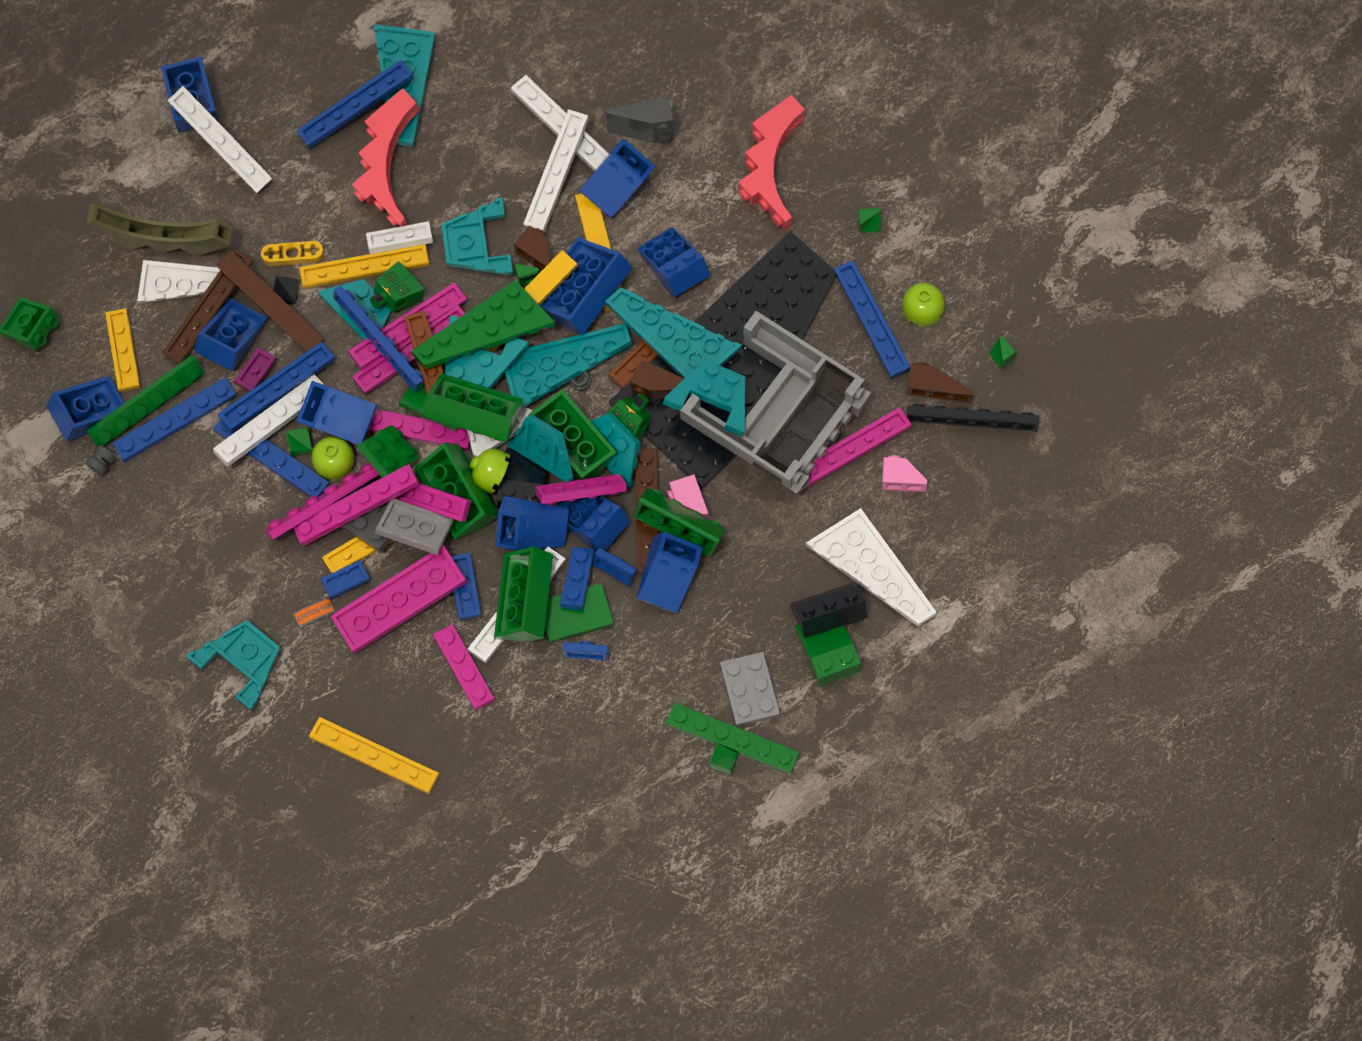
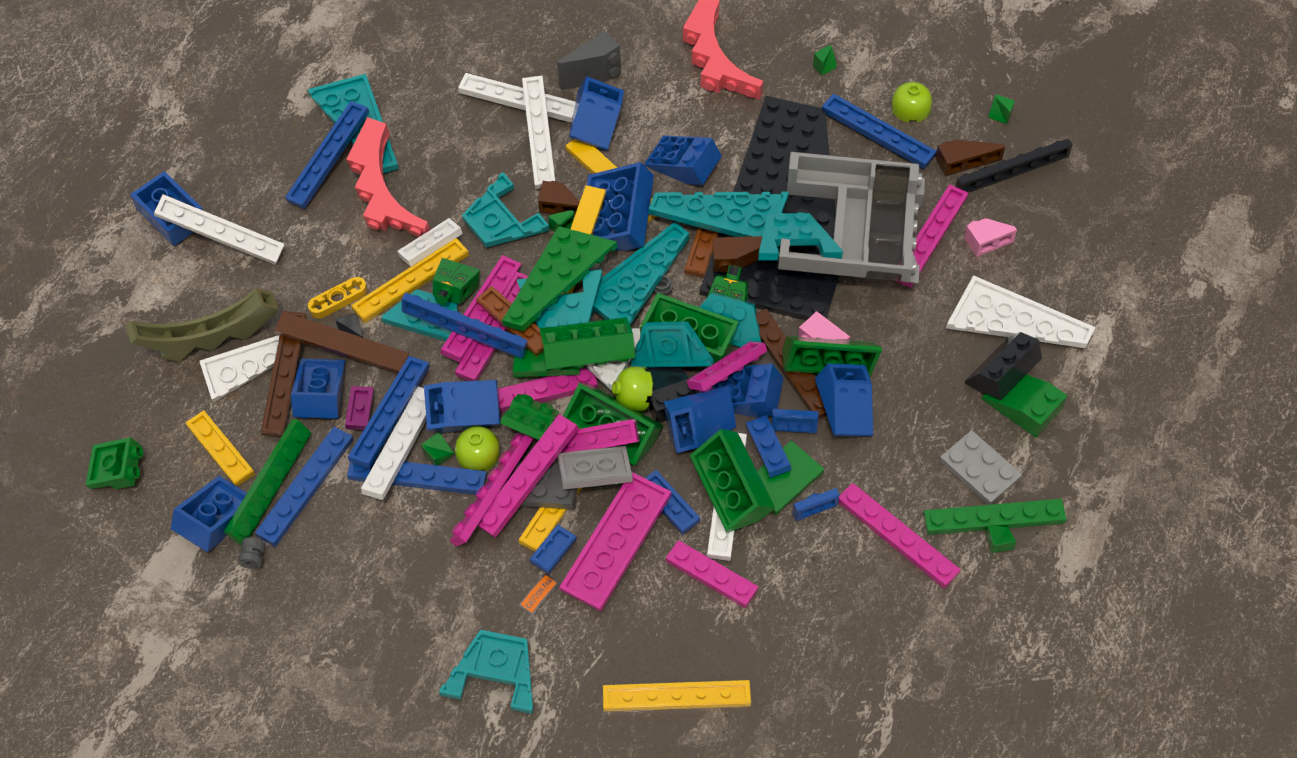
camera: 30 degrees left, 10 degrees down
(640, 713) = (899, 536): none -> dark pink plate

